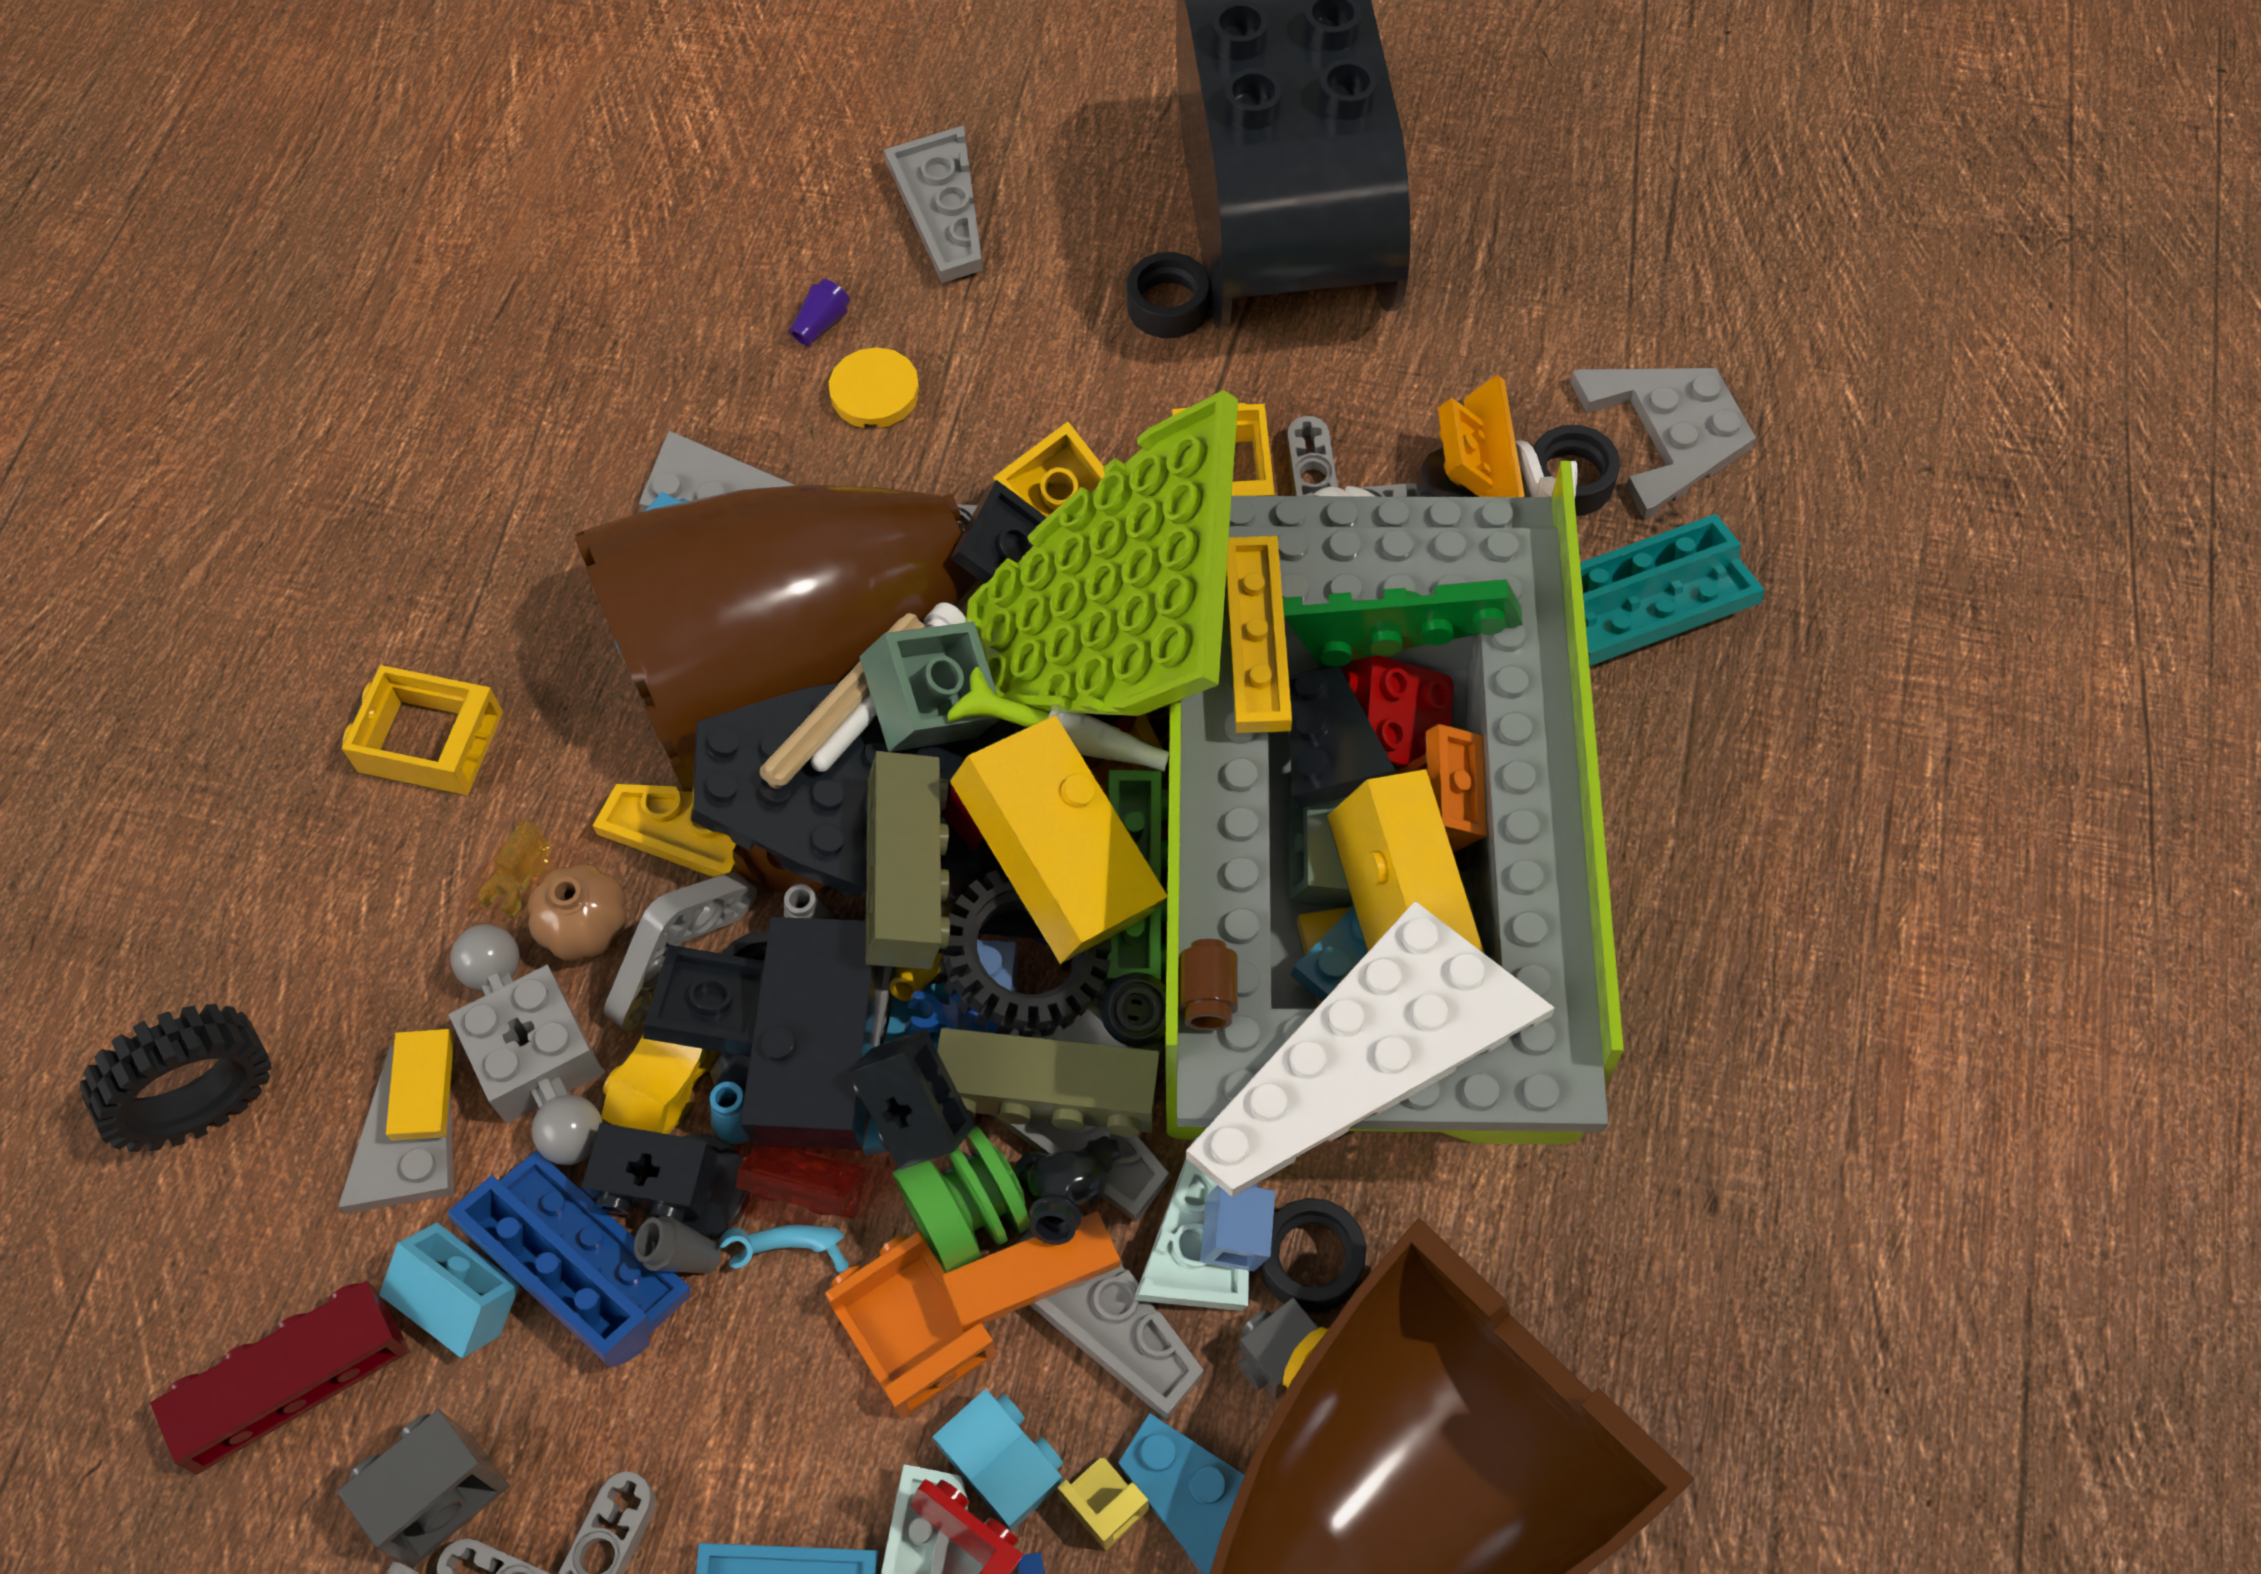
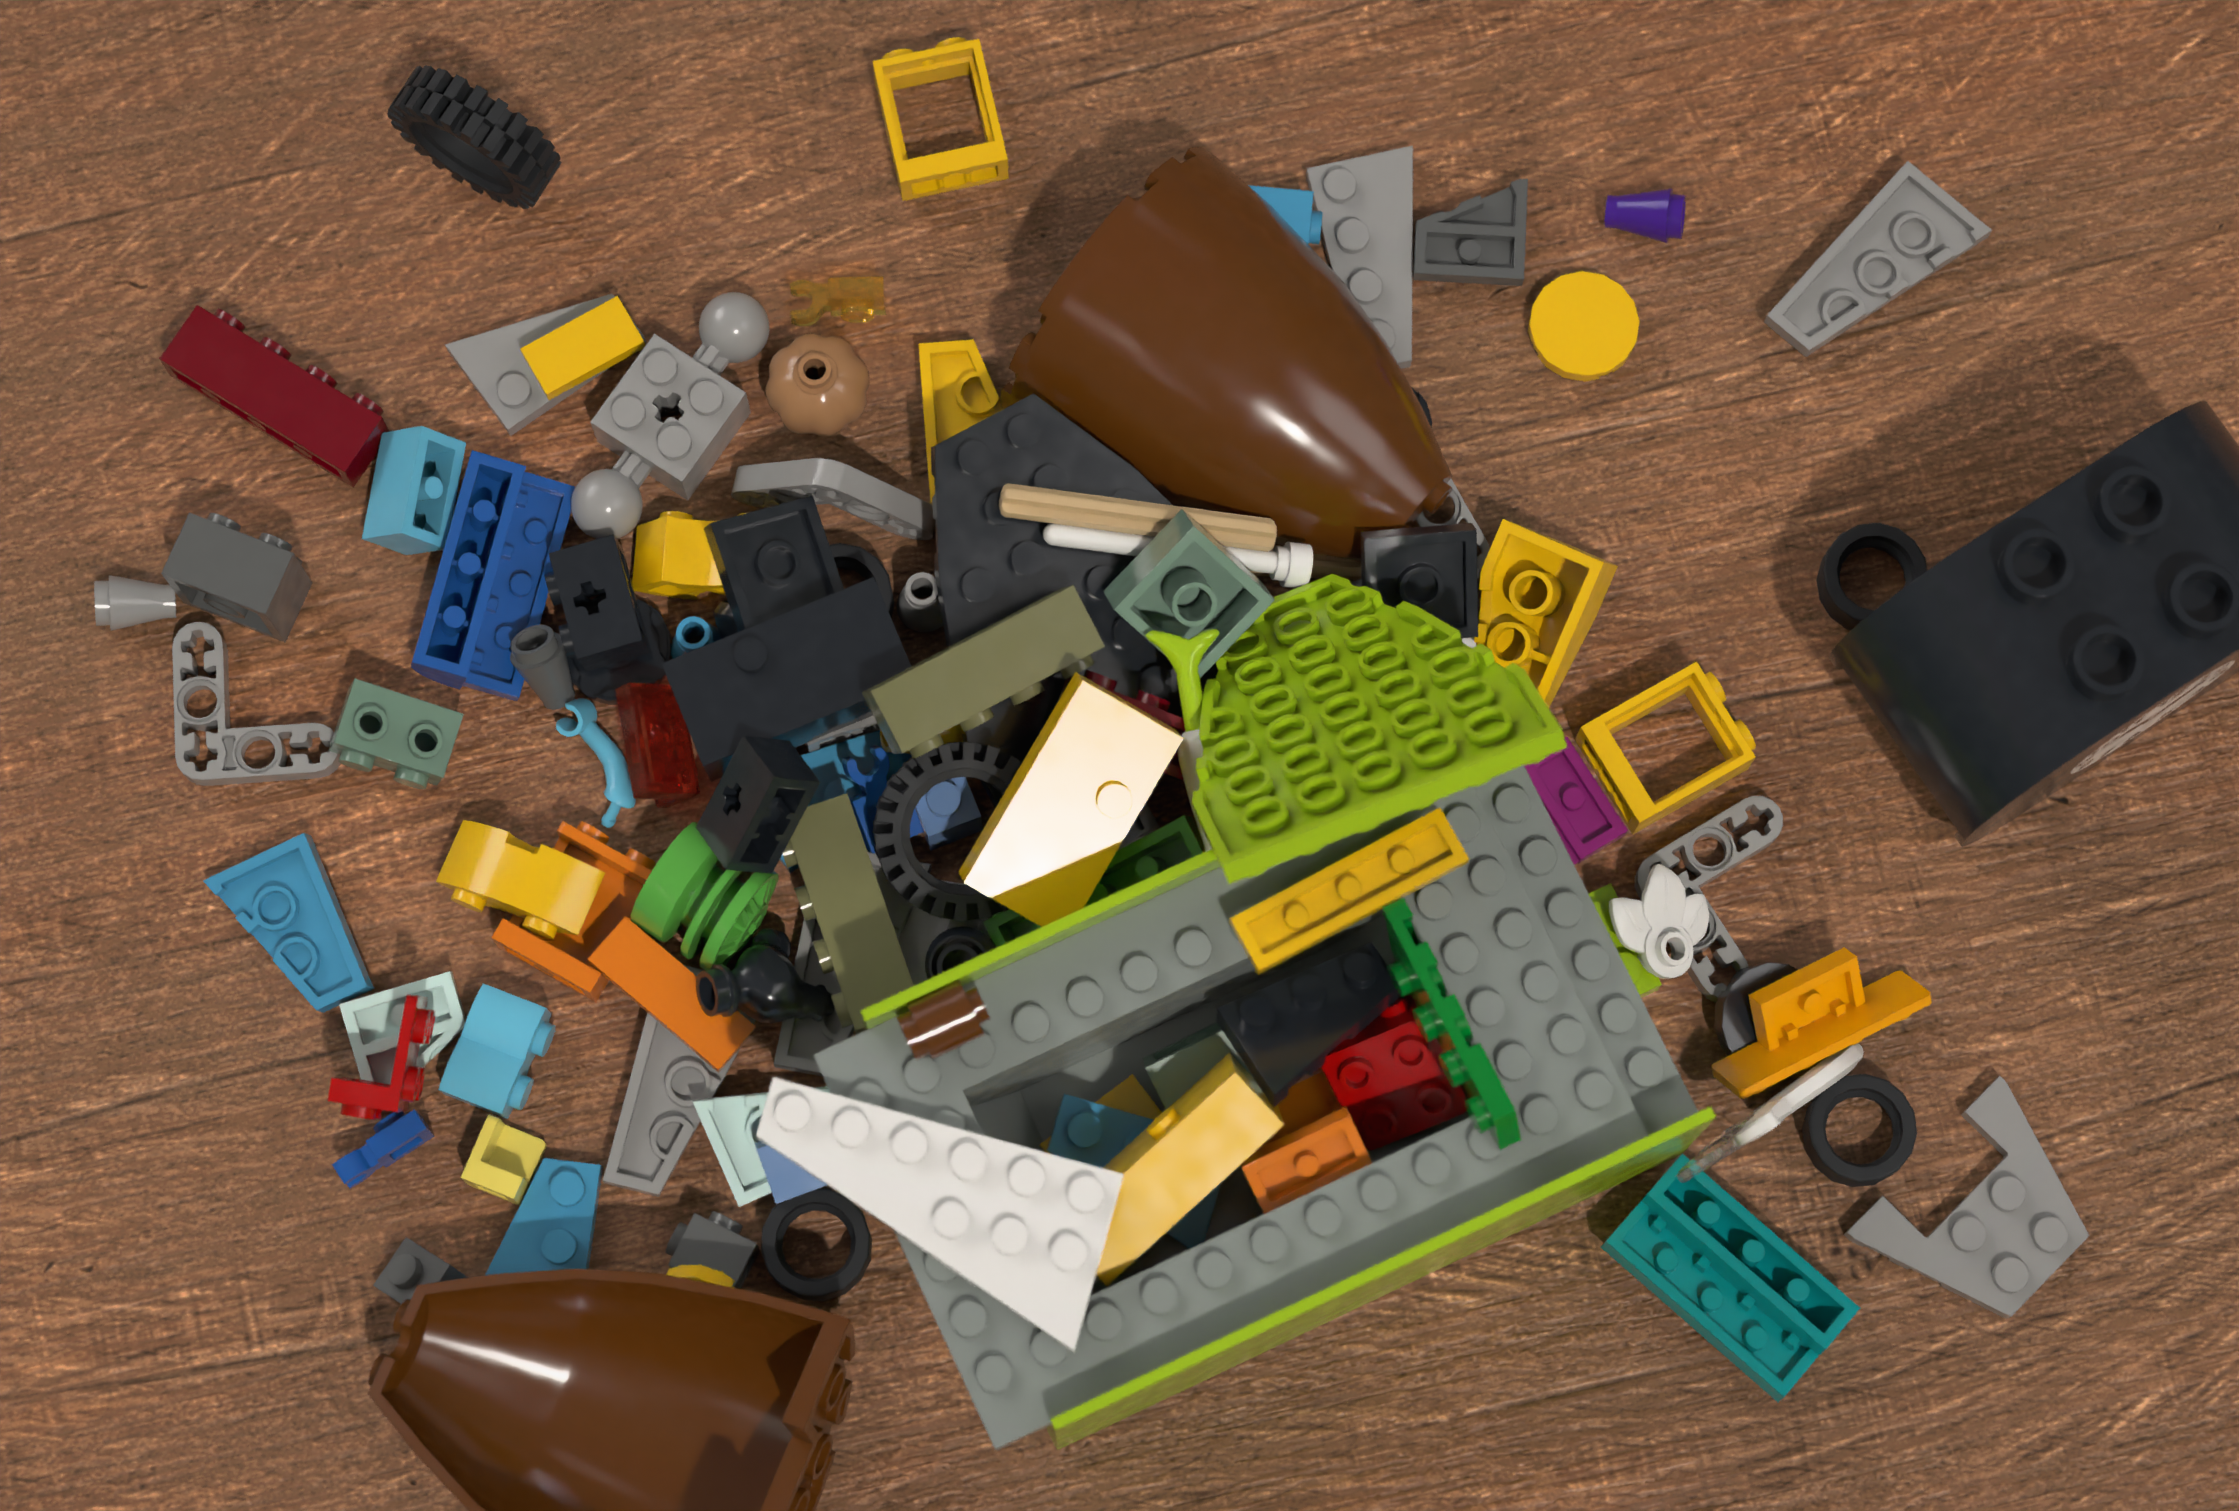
camera: 60 degrees right, 15 degrees up
(657, 1411) = (395, 734): none -> sand green brick
(768, 421) = (1475, 241): none -> dark grey wing
(839, 1373) = (531, 882): none -> yellow brick

